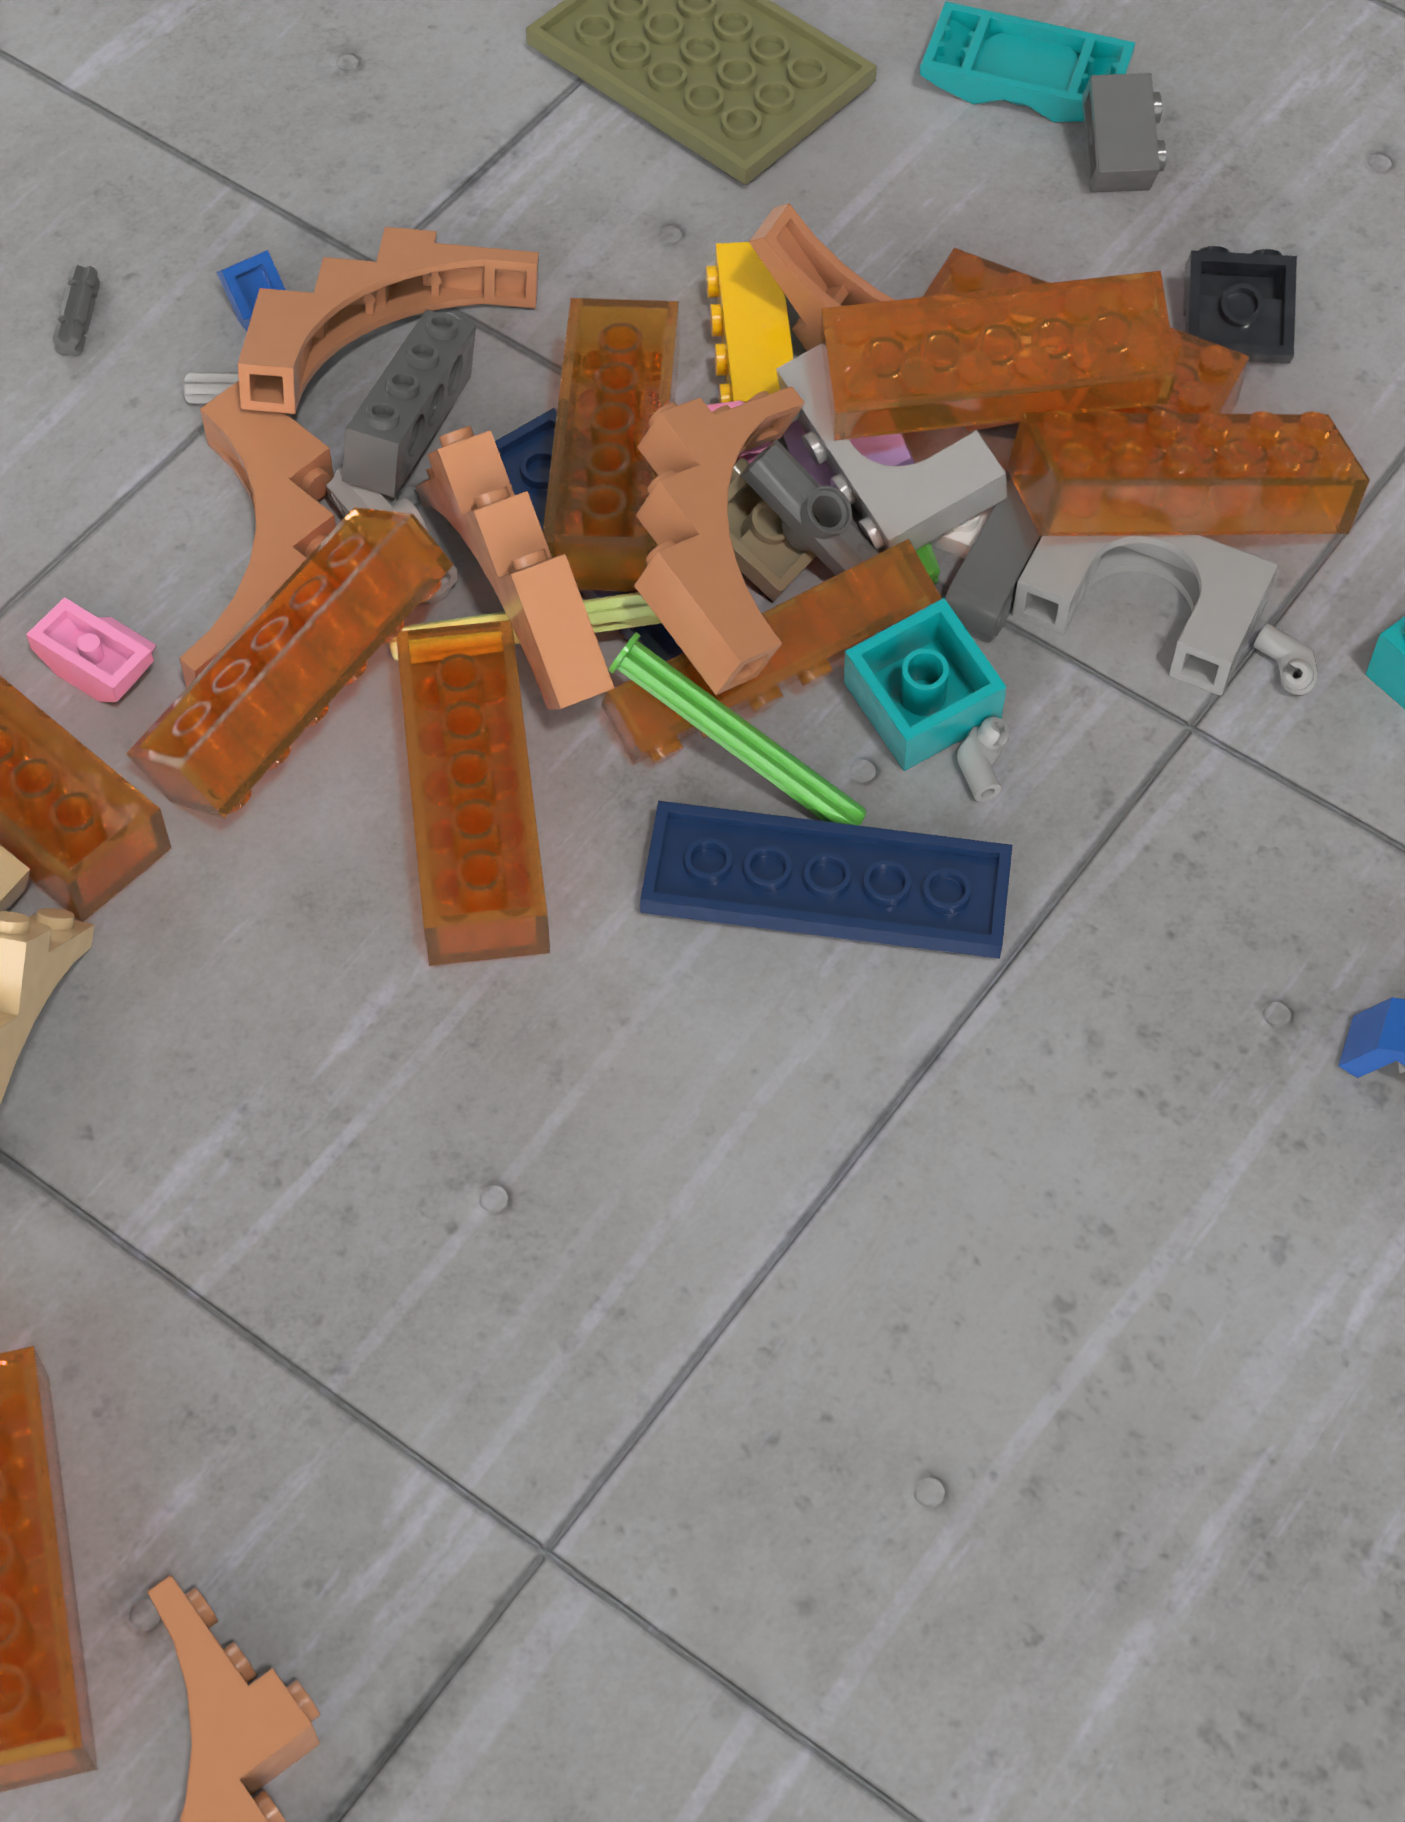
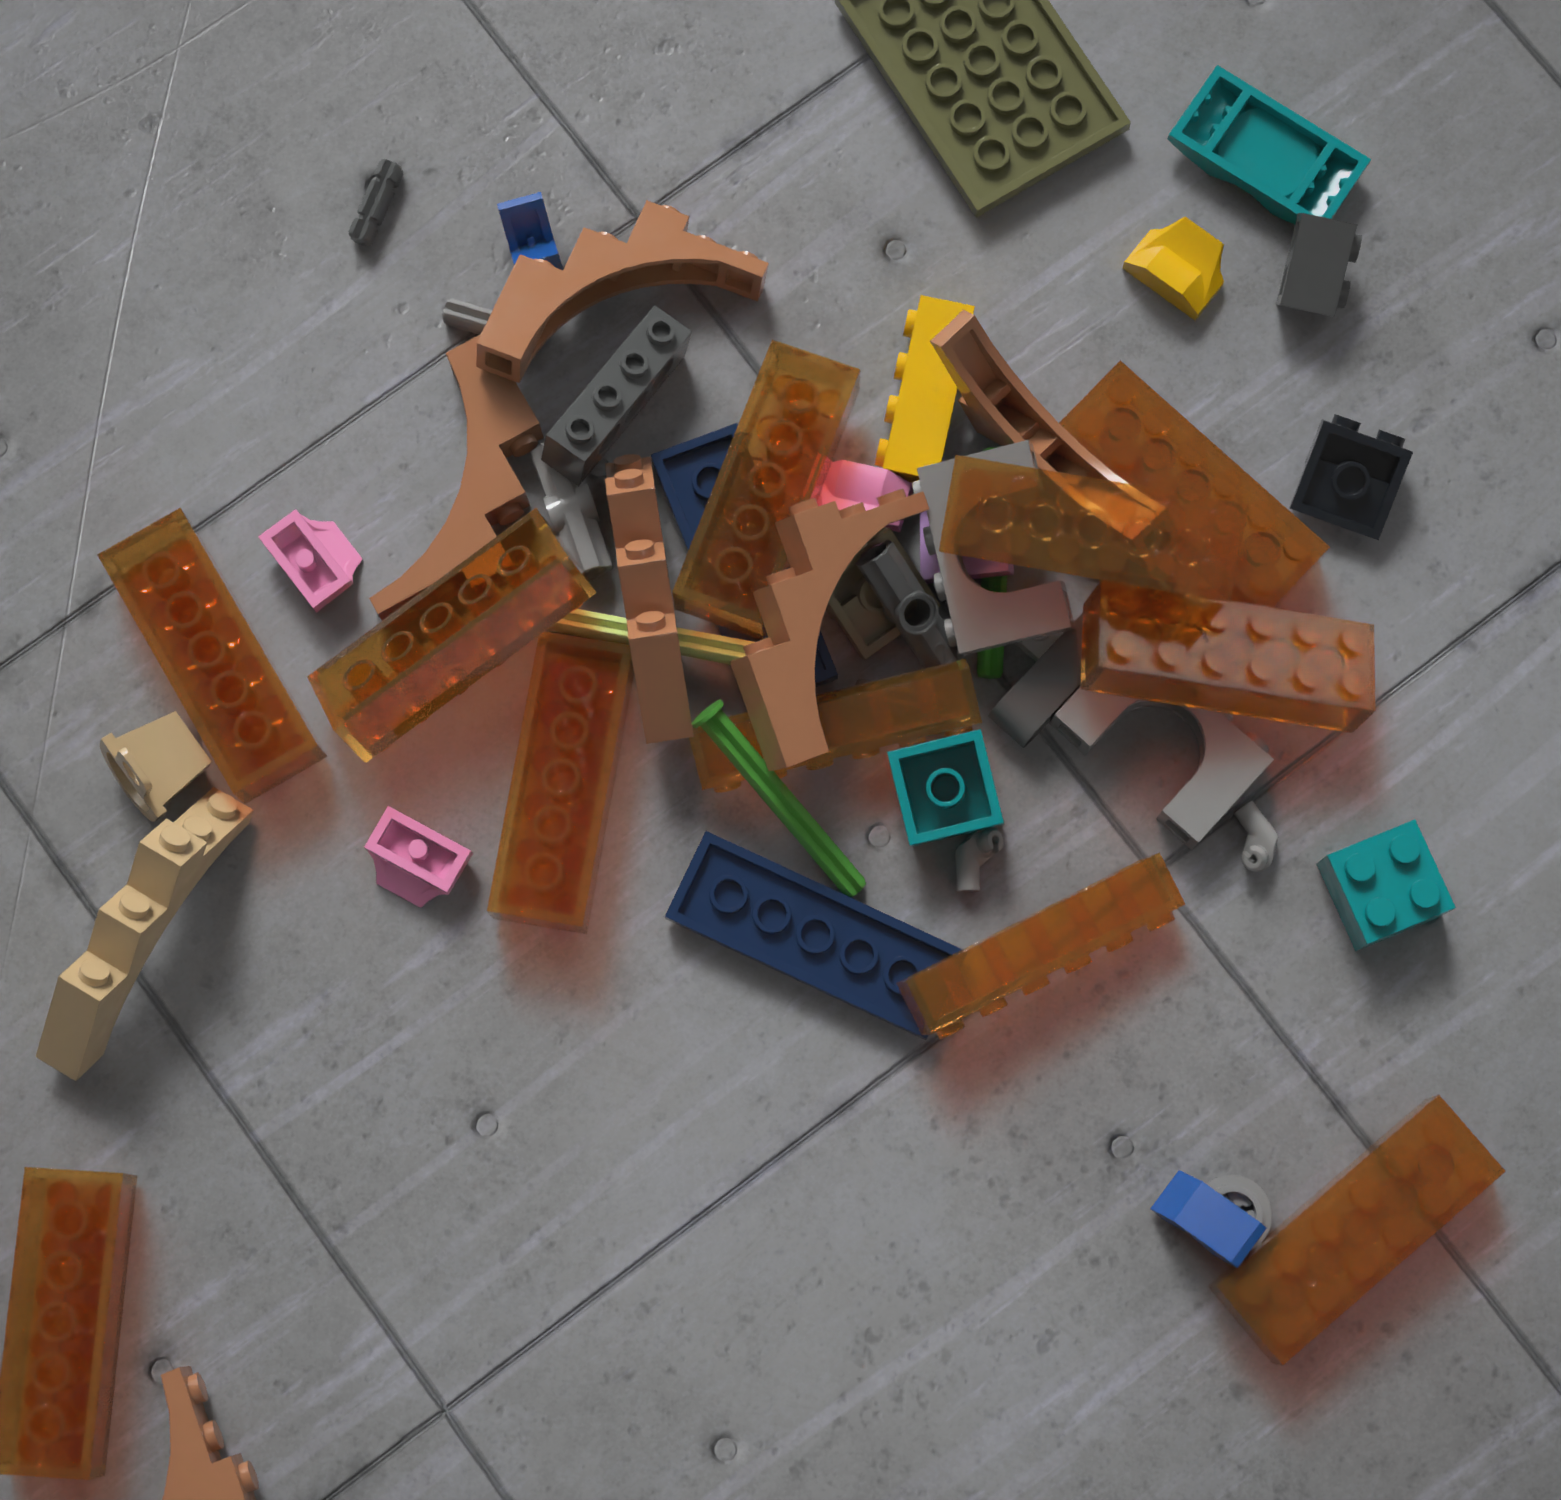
camera: 20 degrees right, 20 degrees up
(312, 921) = (414, 858): none -> bright pink slope
(977, 175) = (1179, 265): none -> yellow slope
(1093, 811) = (1041, 944): none -> clear orange brick

